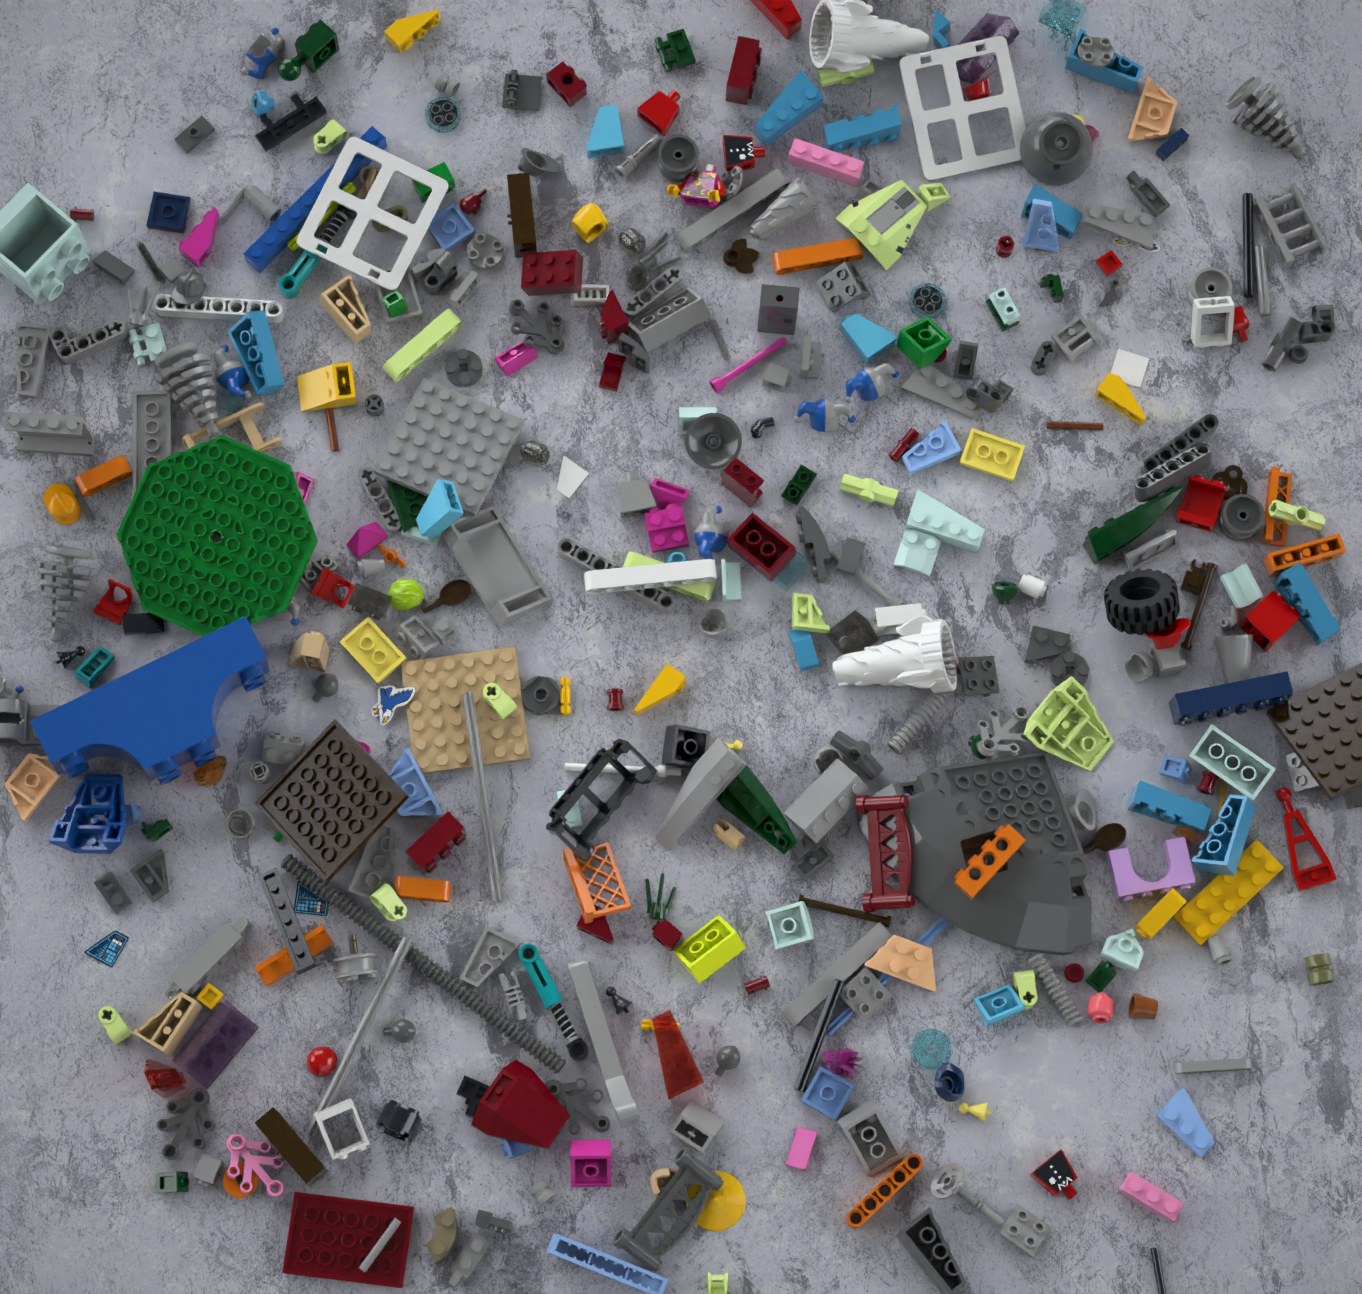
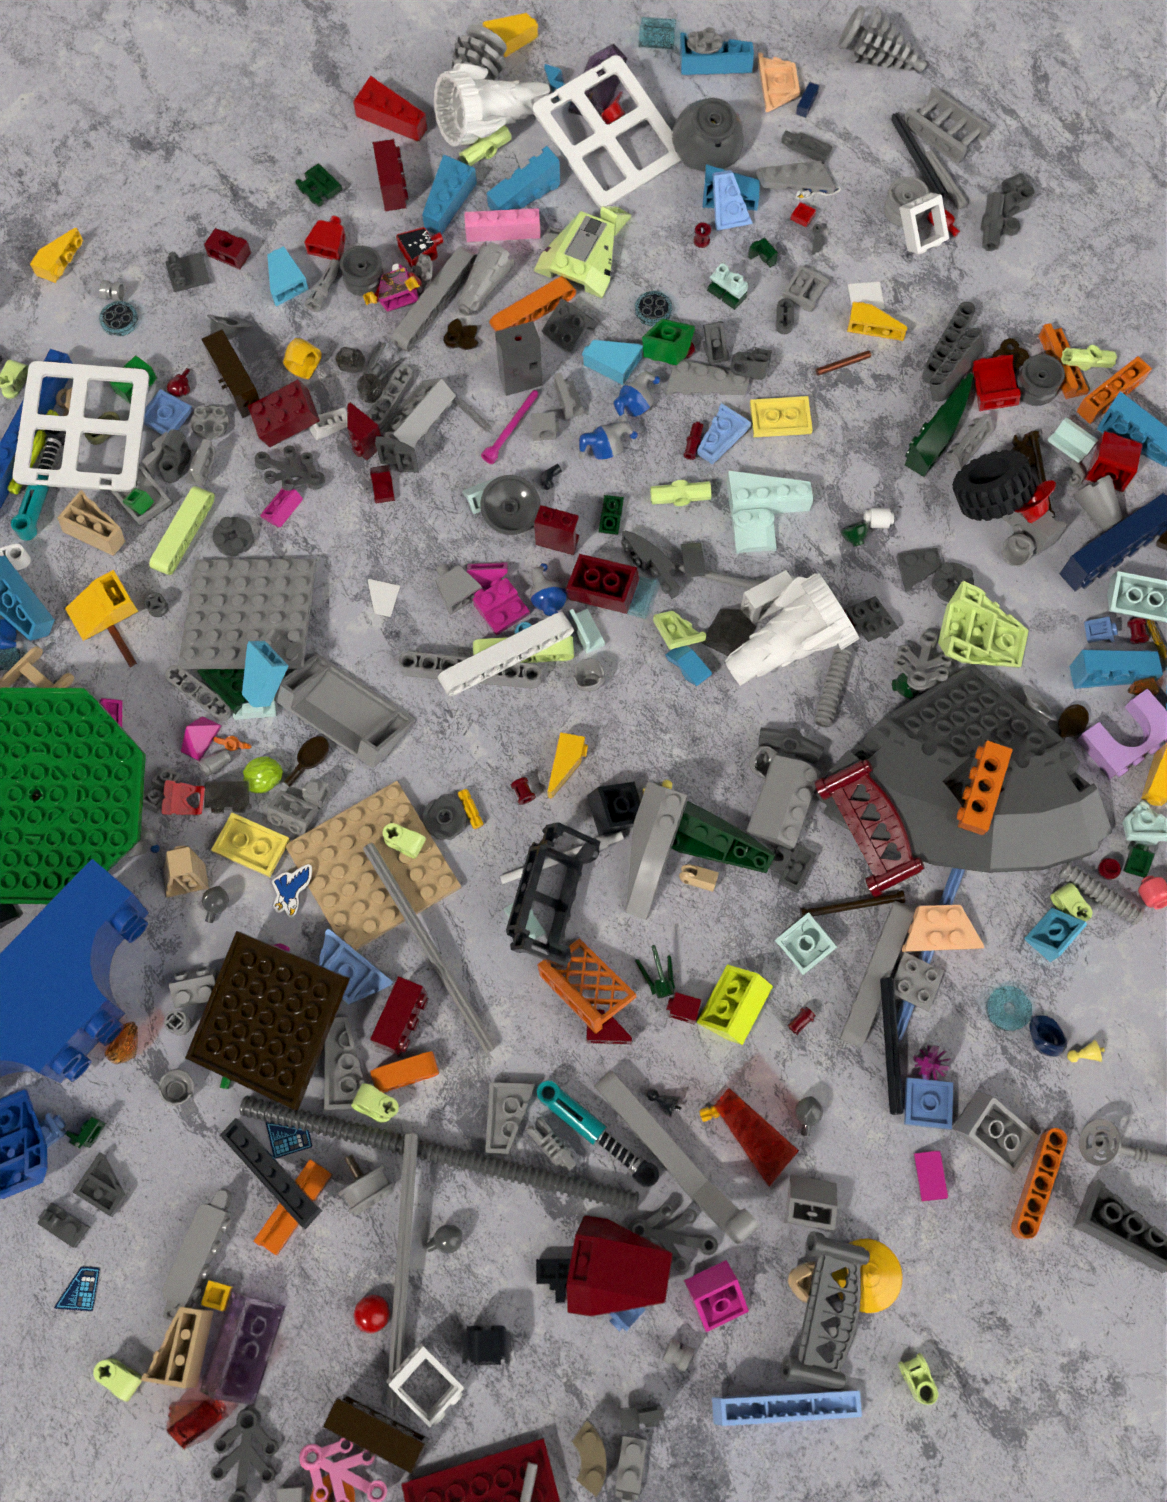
camera: 20 degrees left, 5 degrees down
(535, 453) = (338, 586): clear smoke head -> none

